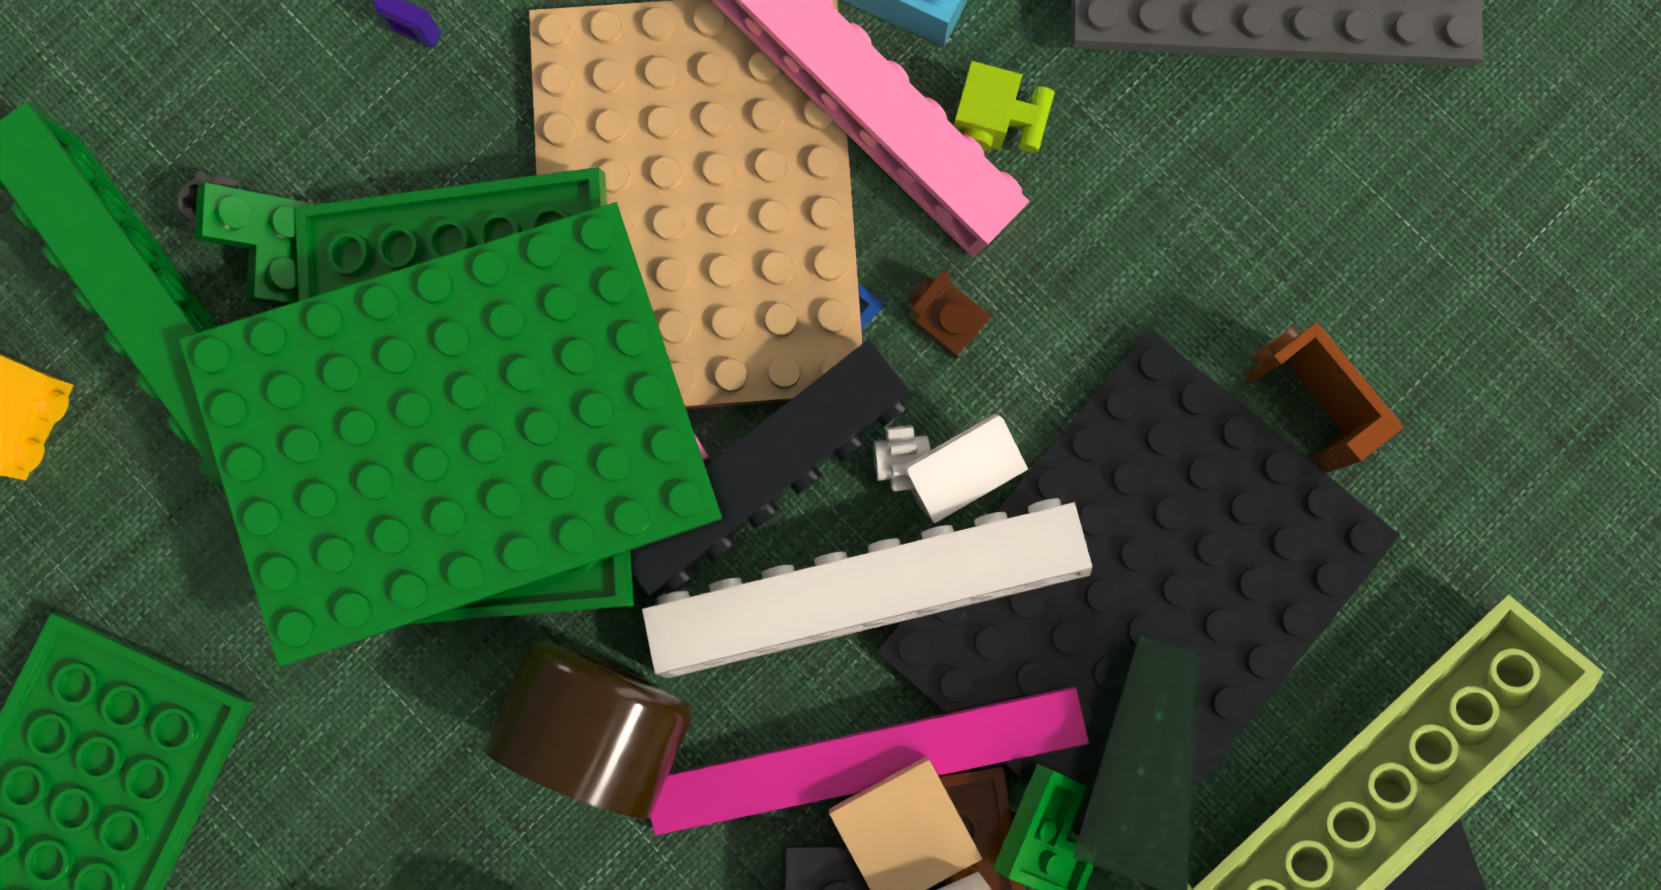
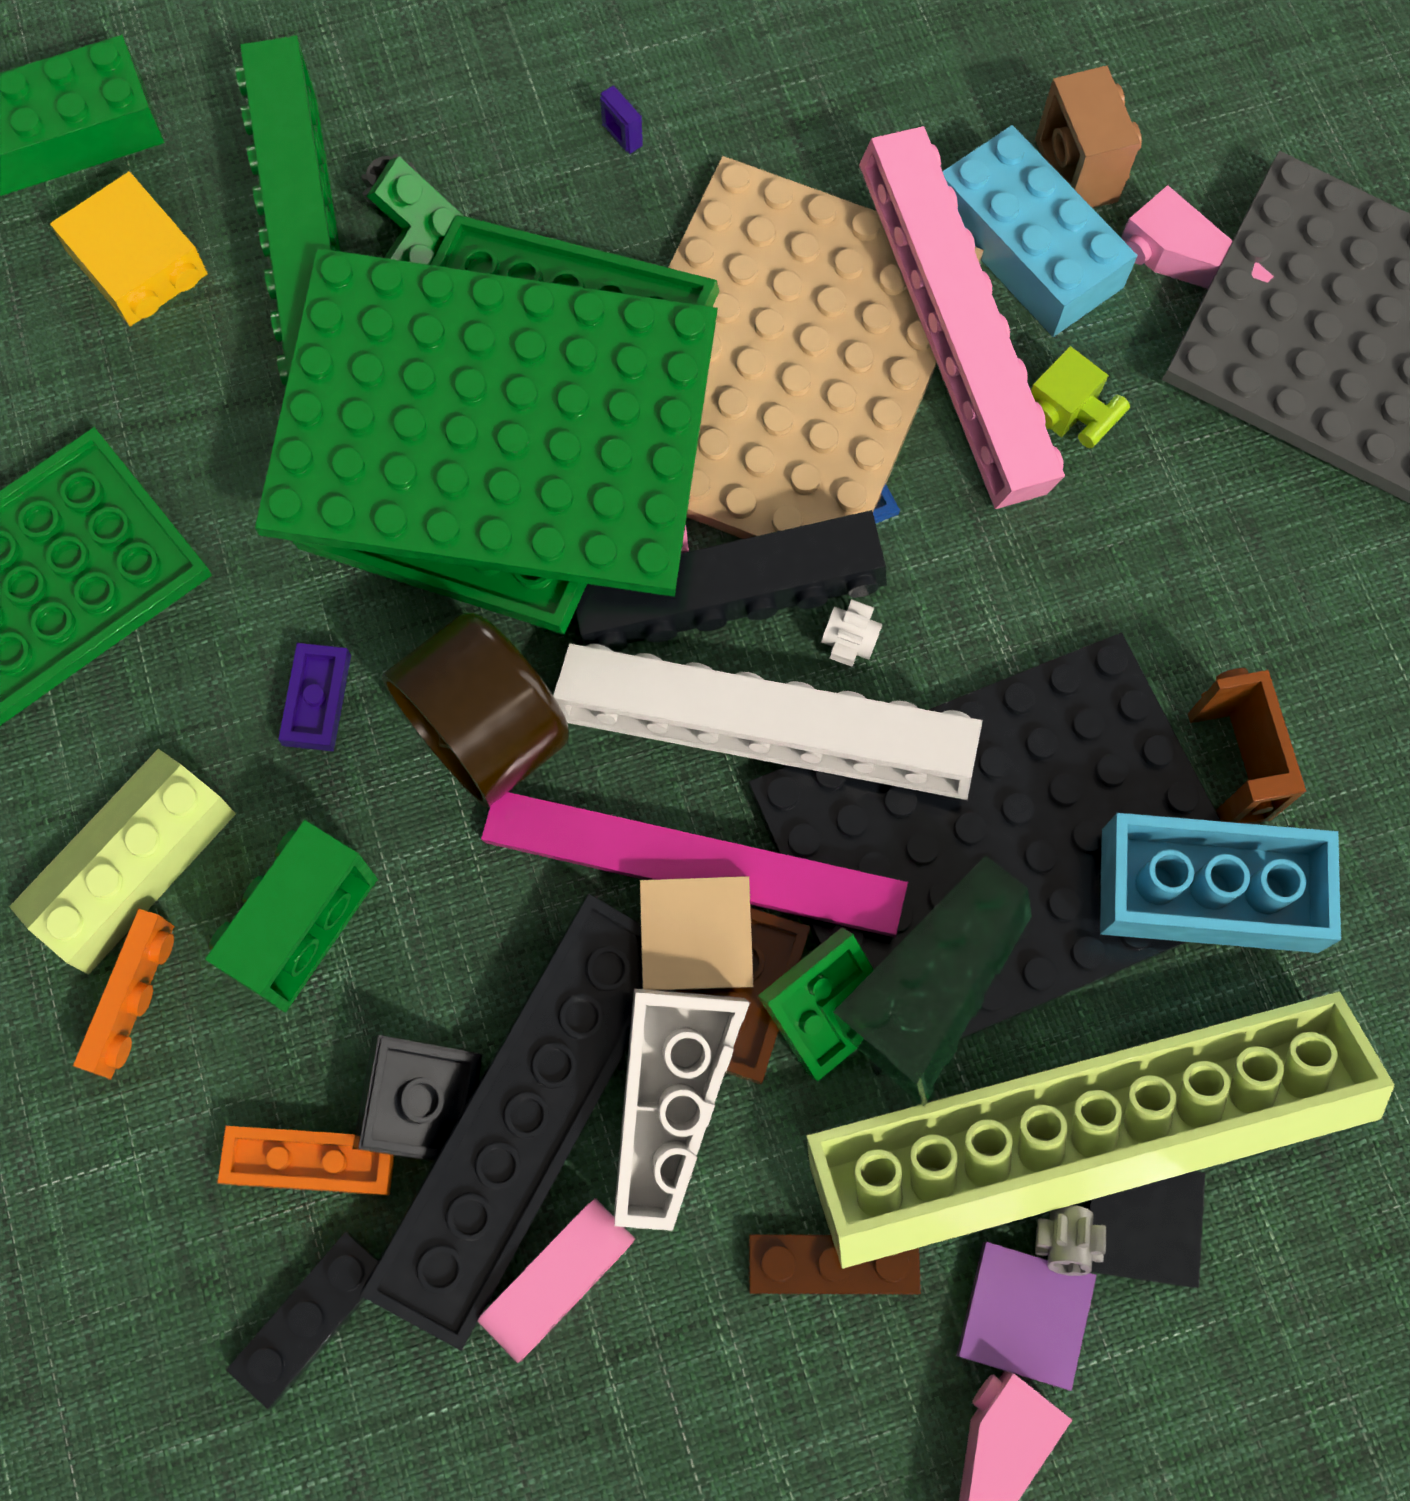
camera: 25 degrees right, 10 degrees down
(422, 776) = (315, 697): none -> dark purple plate
(946, 314) = (948, 540): reddish brown bracket -> none
(965, 468) = (902, 659): white panel -> none
(1361, 549) = (1220, 883): none -> medium azure brick

